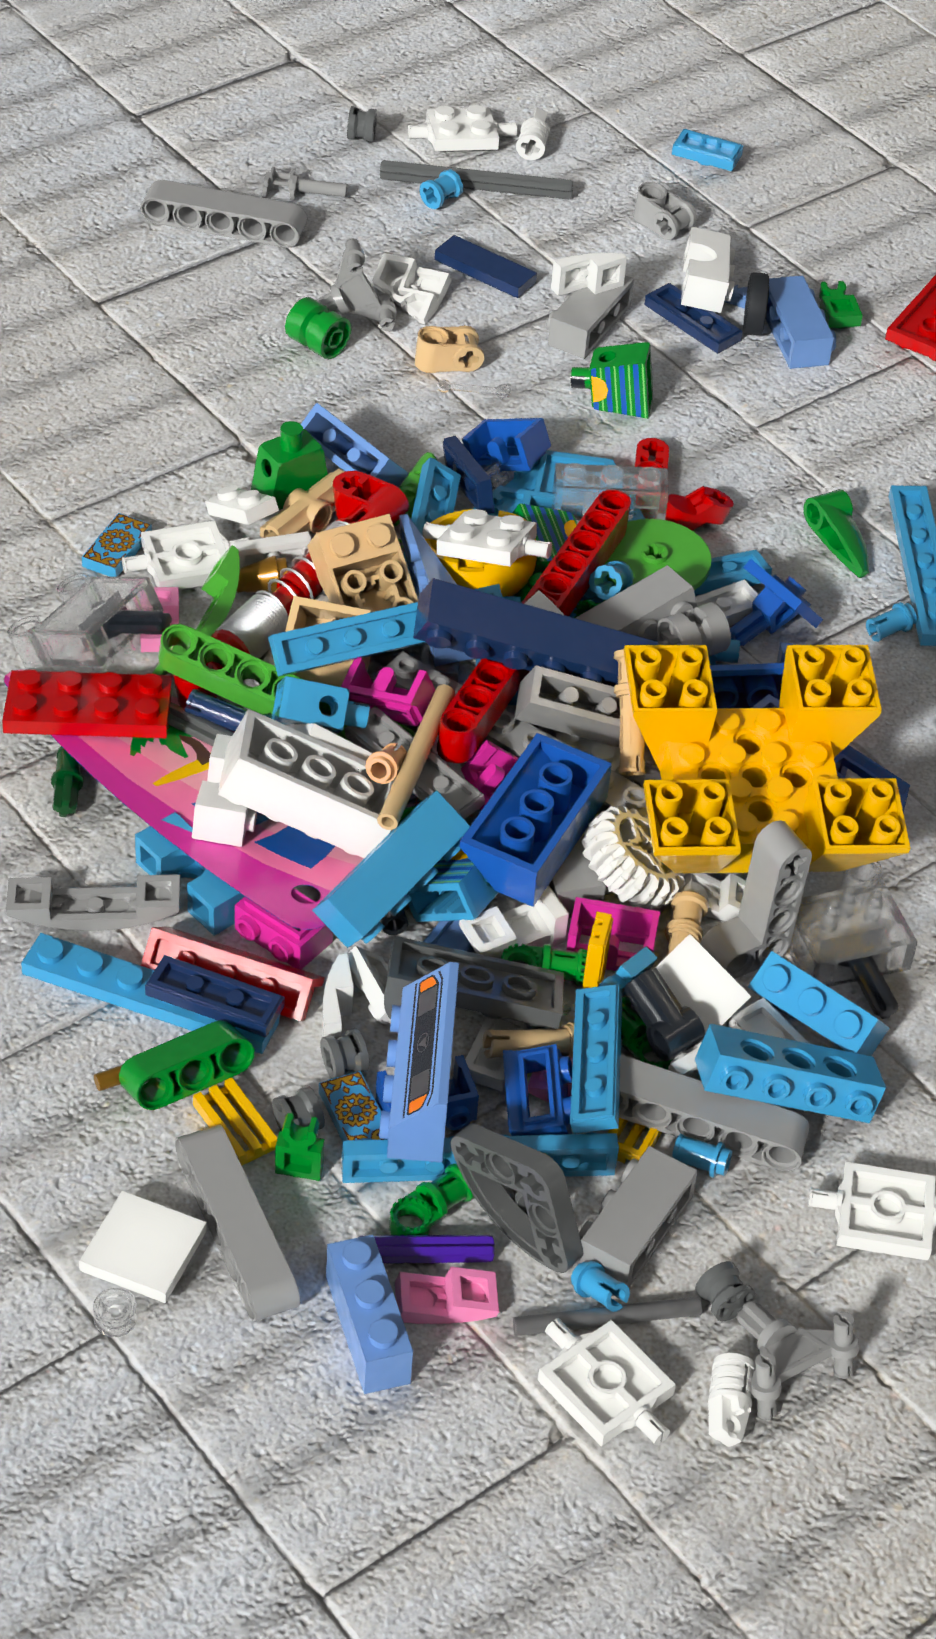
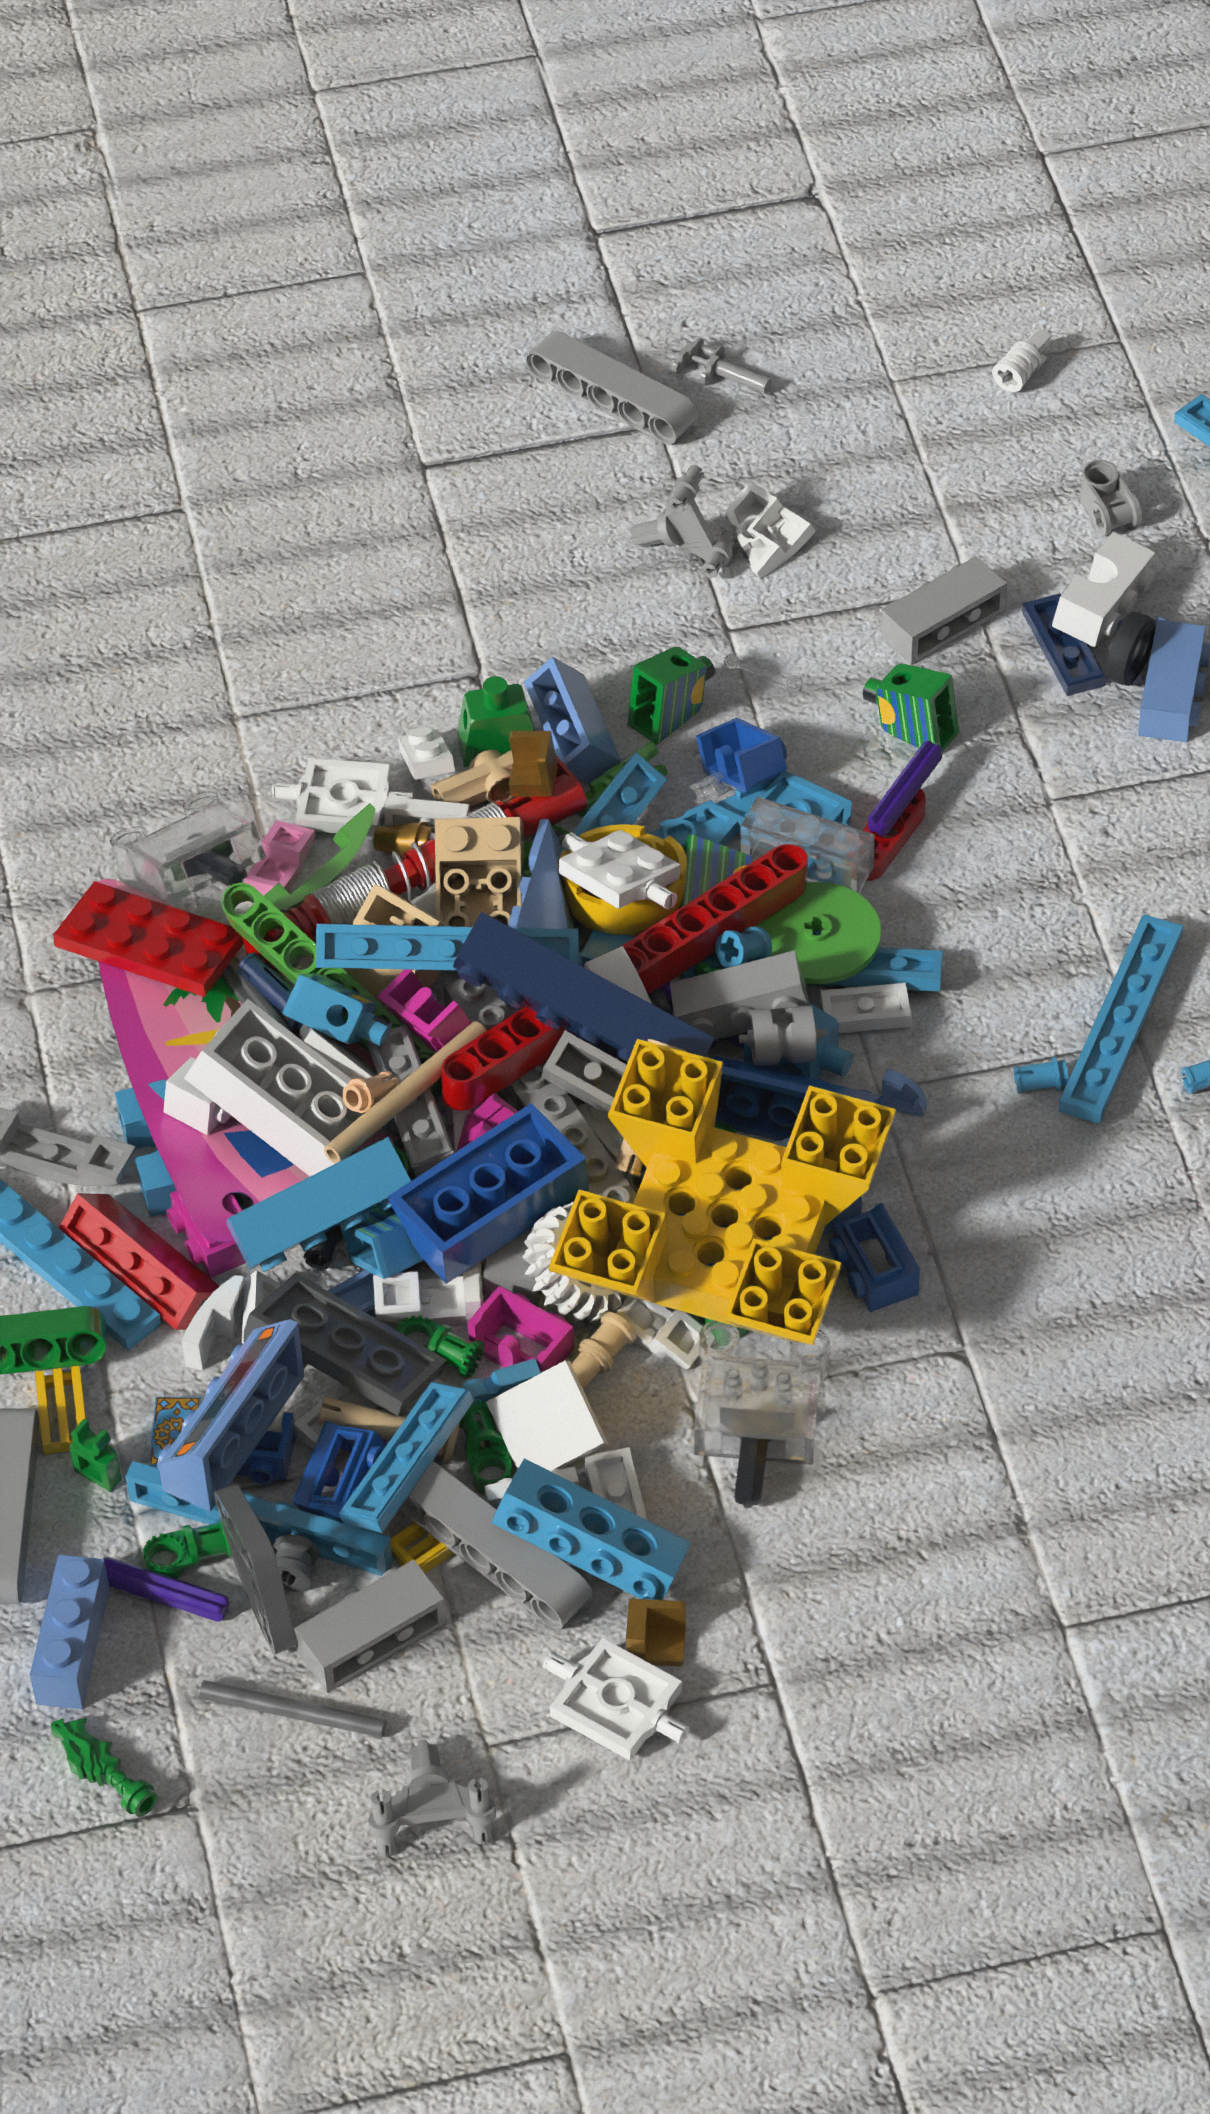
camera: 30 degrees right, 5 degrees up
(66, 783) = (91, 1016): dark green axle -> none
(118, 540) = (281, 763): tile -> none
(215, 995) = (101, 1280): dark blue tile -> none
(303, 1106) = (122, 1419): dark grey wheel -> none
(317, 328) = (627, 558): green wheel -> none
(344, 1053) = (189, 1374): dark grey wheel -> none
(359, 479) = (533, 764): none -> pearl gold panel
(362, 124) = (831, 303): dark grey wheel -> none
(417, 404) = (667, 692): none -> green torso
(438, 190) = (871, 410): dark azure bush -> none
(444, 348) = (754, 618): tan piece -> none
(452, 1425) = (93, 1760): none -> green piece
(456, 1298) = (157, 1643): bright pink slope -> none
(462, 129) = (946, 334): white plate -> none
(473, 480) = (676, 781): dark blue tile -> none
(480, 179) = (924, 406): dark grey axle -> none
(485, 266) = (866, 521): dark blue tile -> none
(591, 270) = (959, 566): white slope -> none
(592, 1281) = (294, 1672): dark azure pin -> none
(598, 950) = (481, 1349): yellow tile -> none
(606, 1382) = (249, 1768): white plate -> none
(651, 434) = (904, 788): none -> dark purple axle
(669, 1025) = (502, 1431): black piece -> none
(699, 507) = (915, 883): red piece -> none
(702, 1155) = (482, 1592): dark azure pin -> none
(724, 1290) = (408, 1721): dark grey wheel -> none
(730, 1397) = (348, 1825): white hinge -> none
(768, 903) = (668, 1377): light grey beam -> none
(773, 606) = (919, 1021): blue piece -> none
(818, 1006) = (657, 1454): dark azure arch -> none
(833, 523) = (1056, 950): green piece -> none
(878, 1140) = (657, 1631): none -> pearl gold panel

